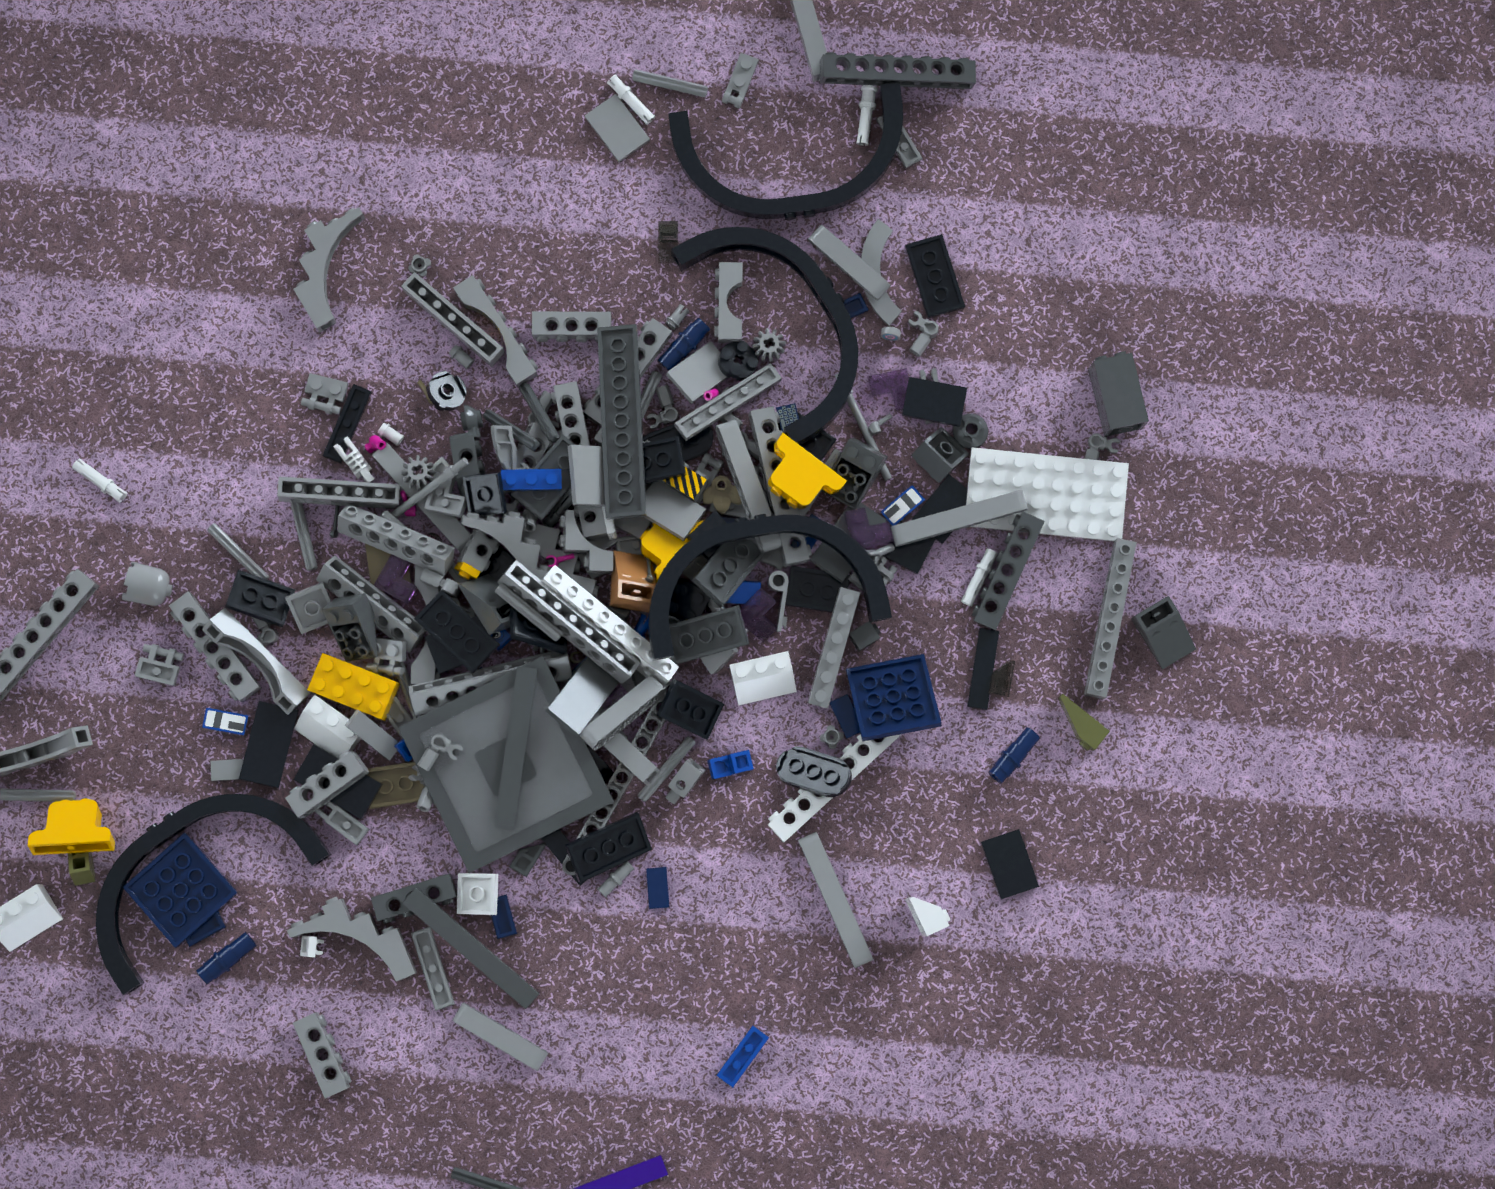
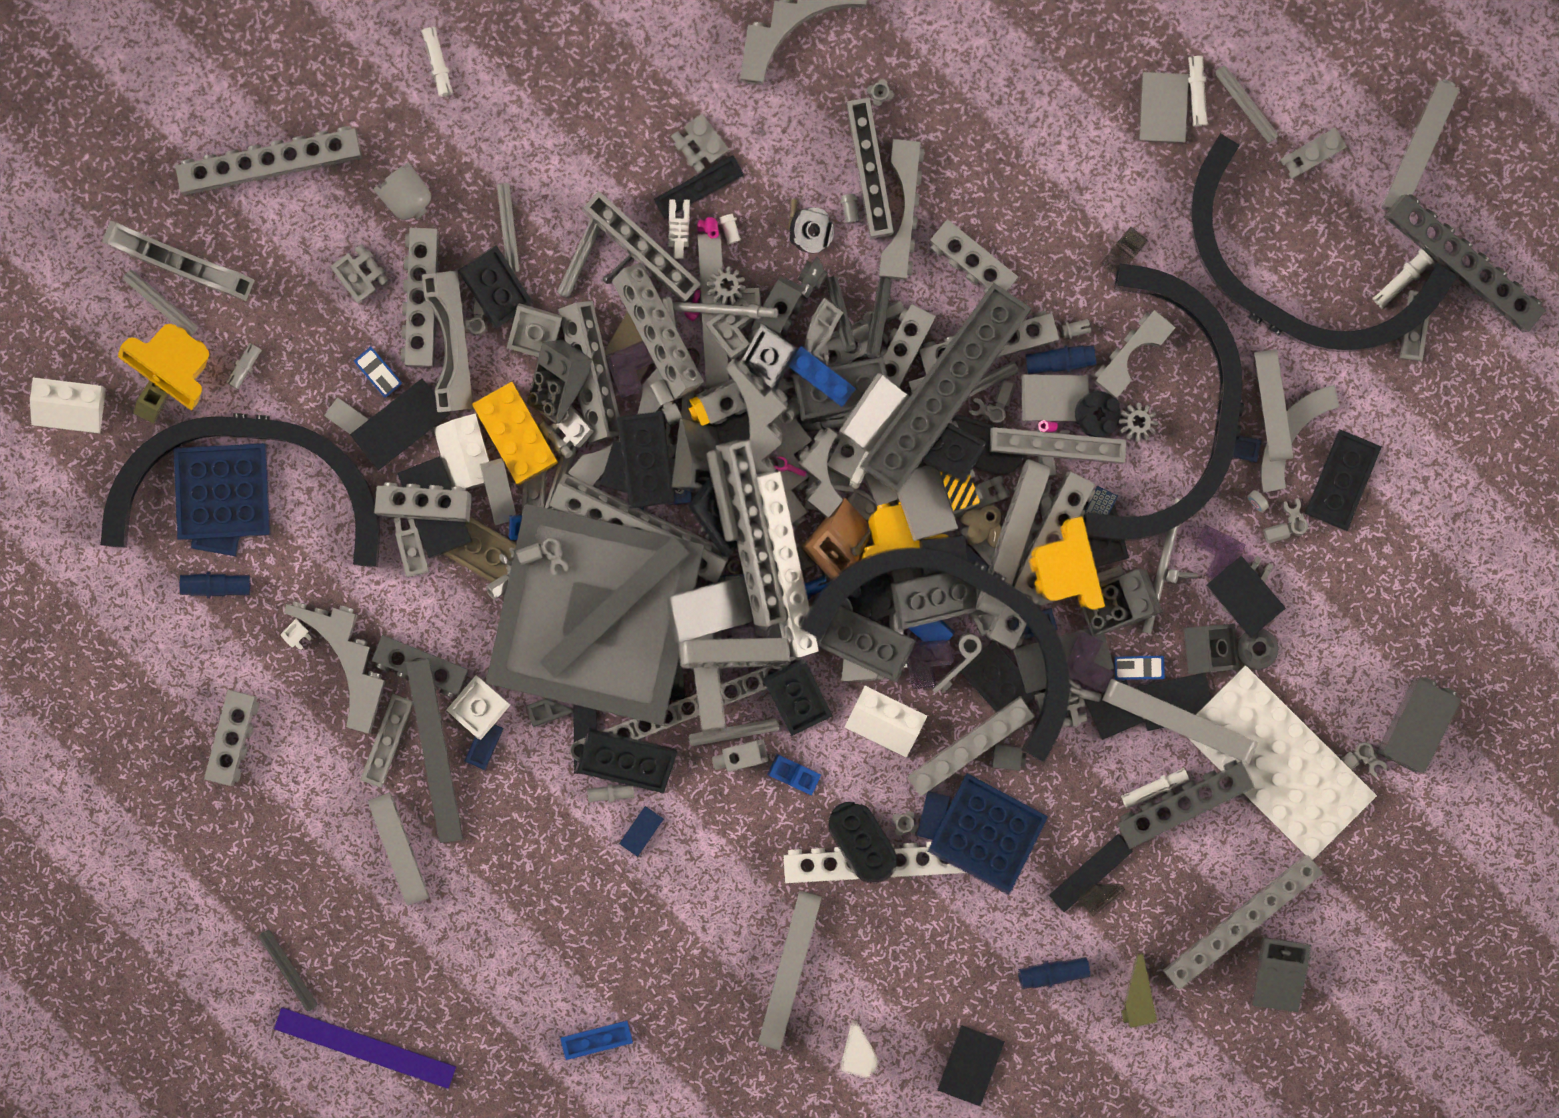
camera: 45 degrees right, 5 degrees up
(128, 791) = (243, 366): none -> light grey pin

